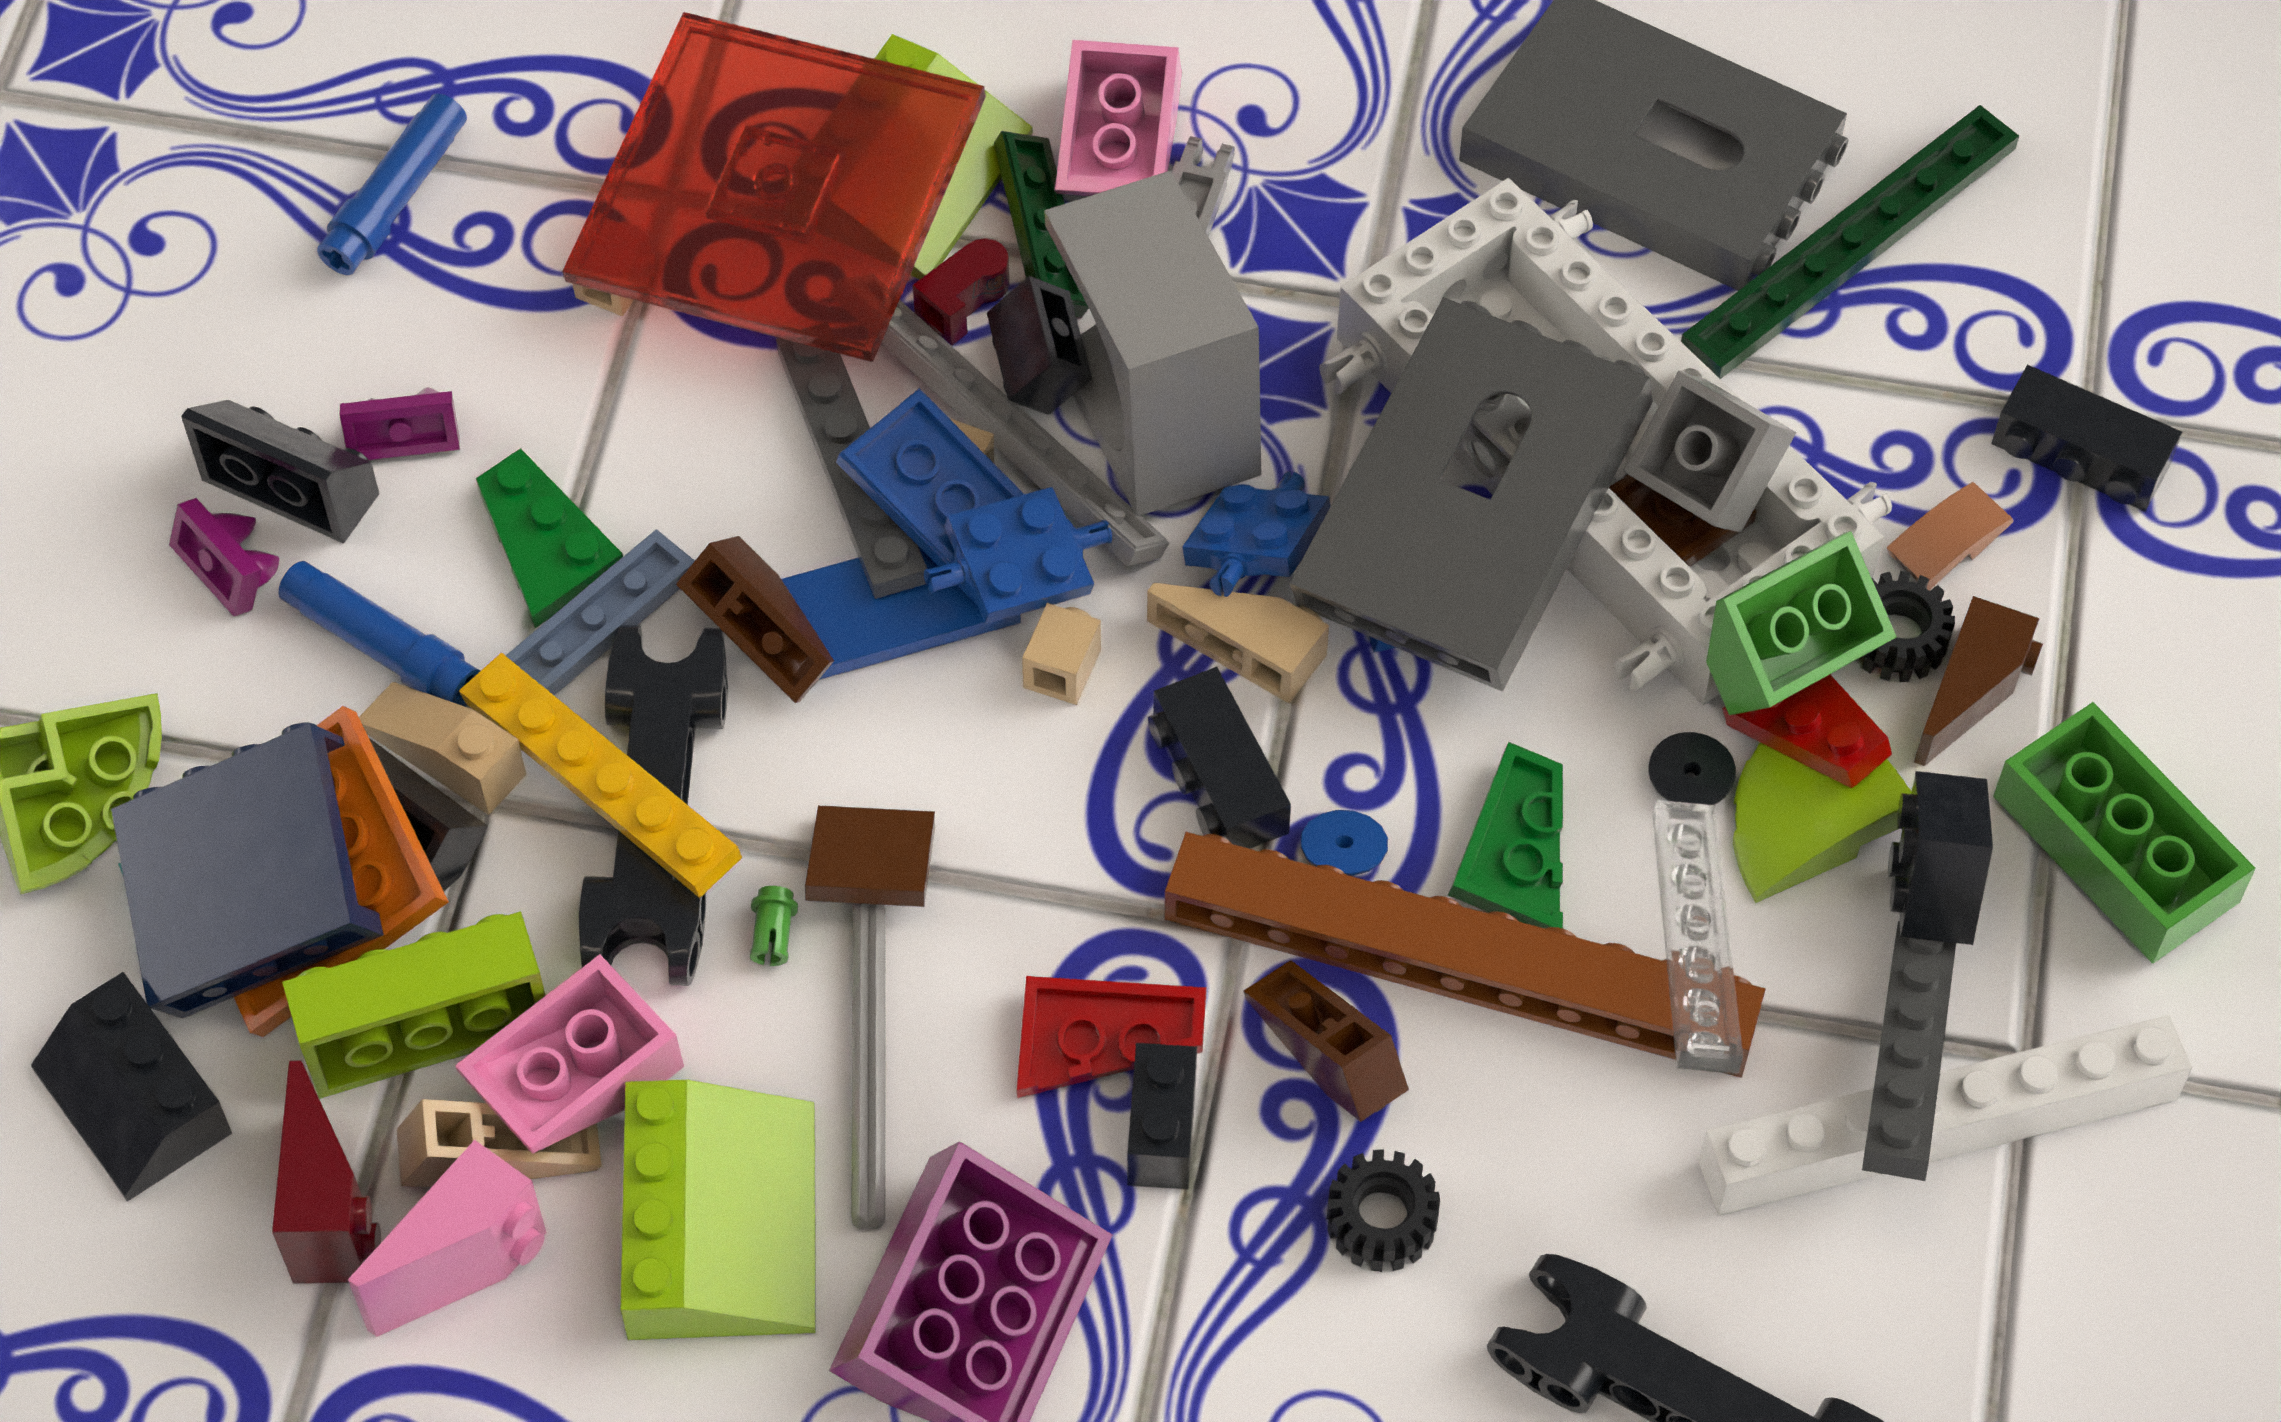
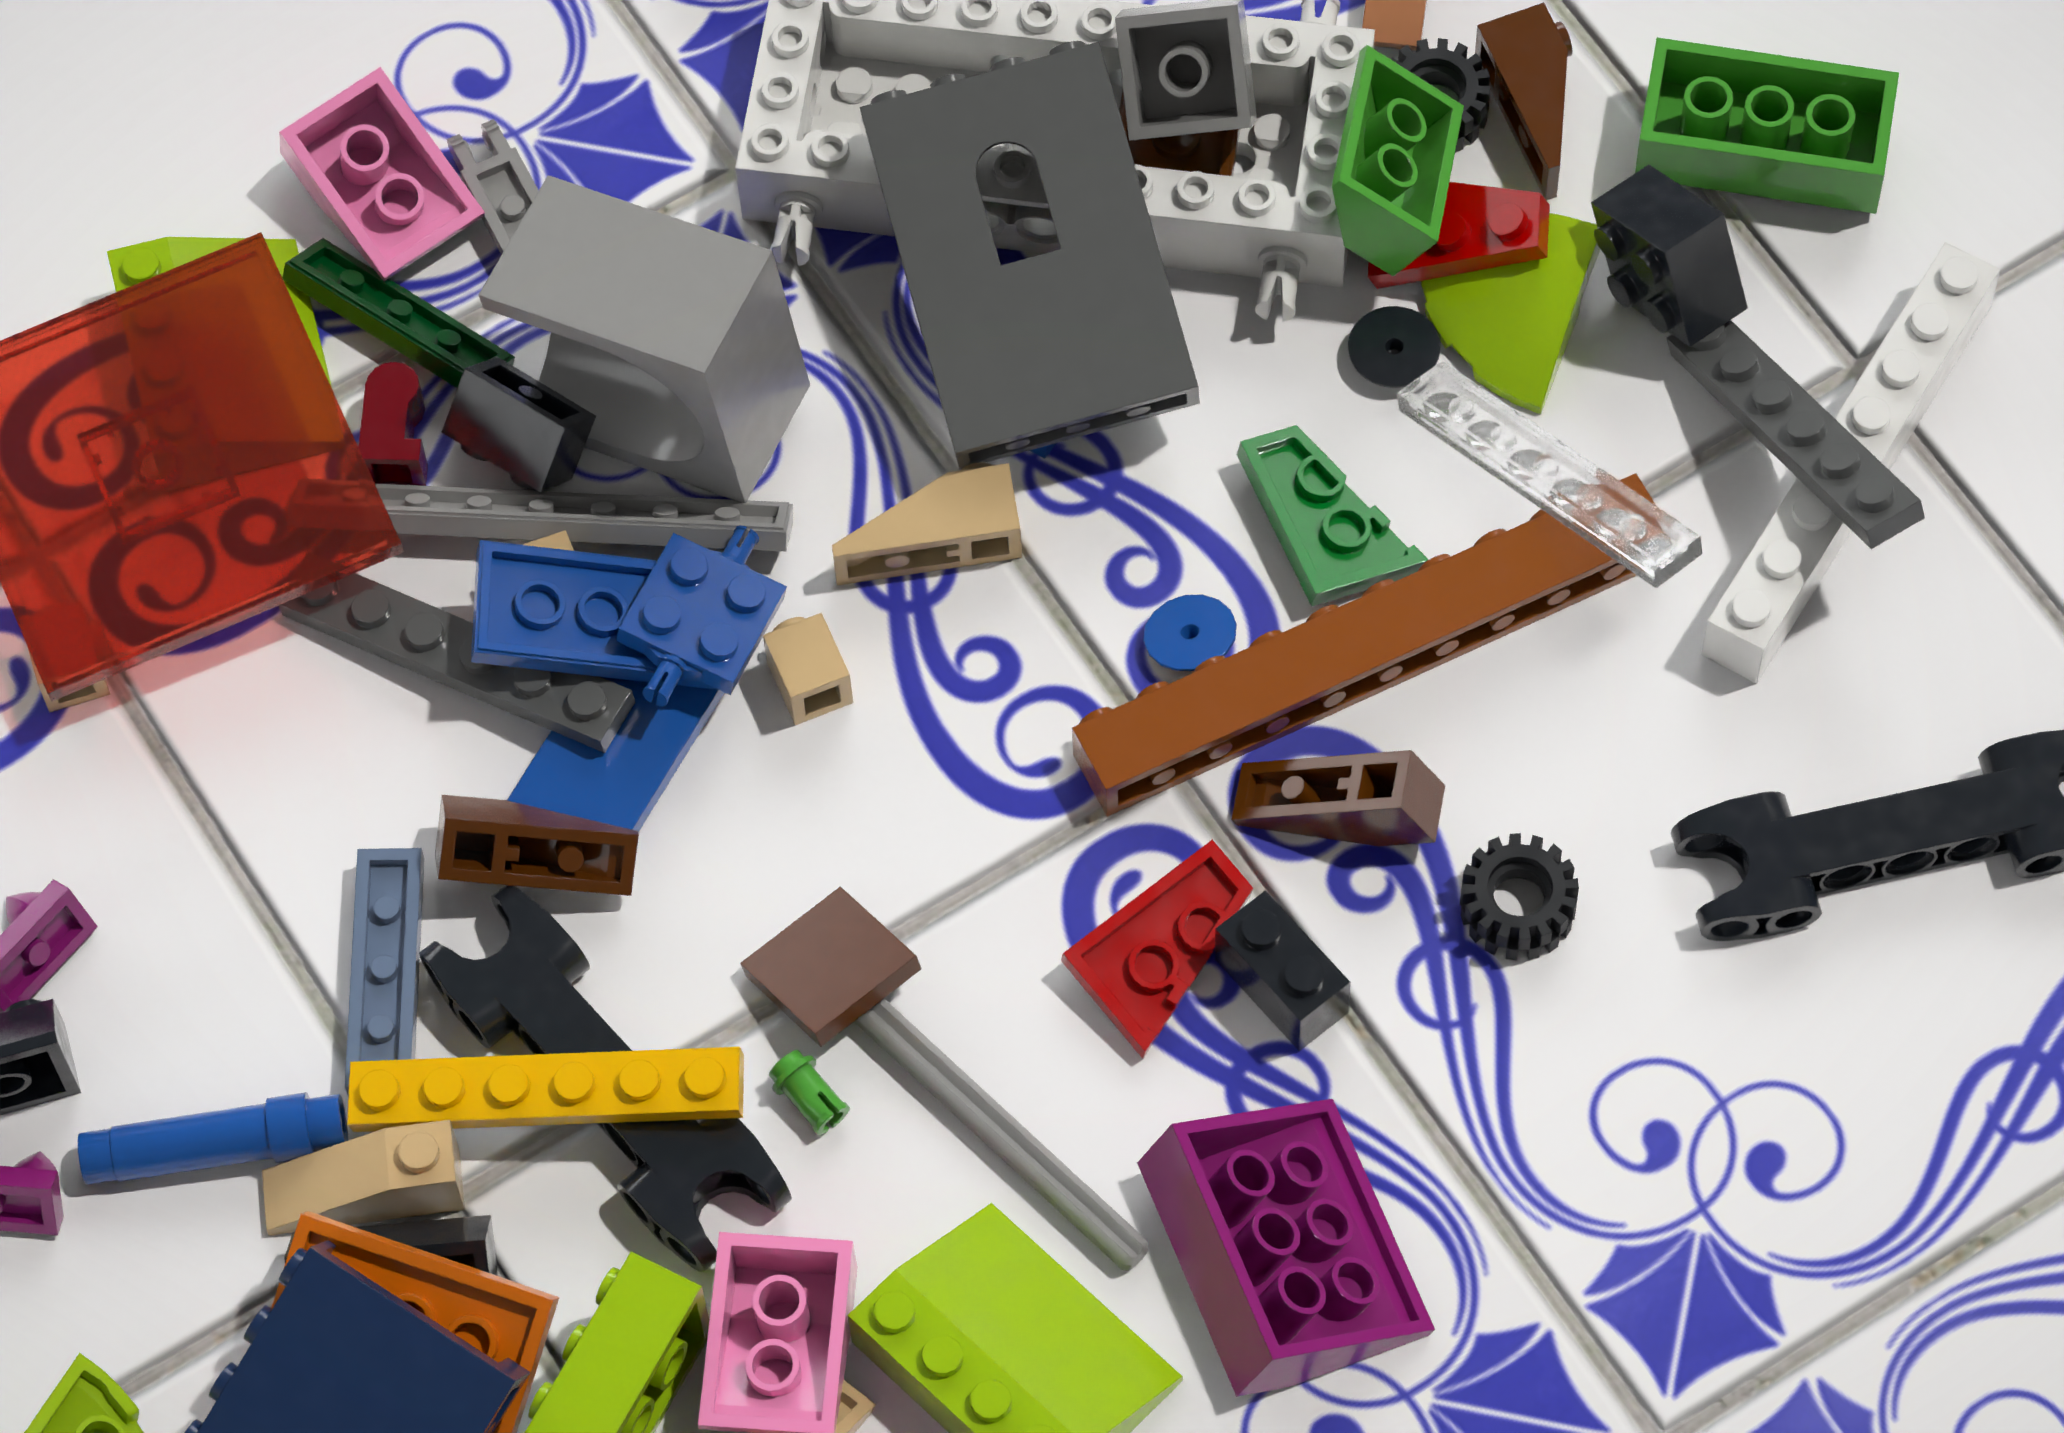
camera: 40 degrees left, 5 degrees up
(544, 535) = (264, 937): green wing -> none
(1219, 761) = (1027, 649): black brick -> none
(1256, 532) = (865, 434): blue plate -> none

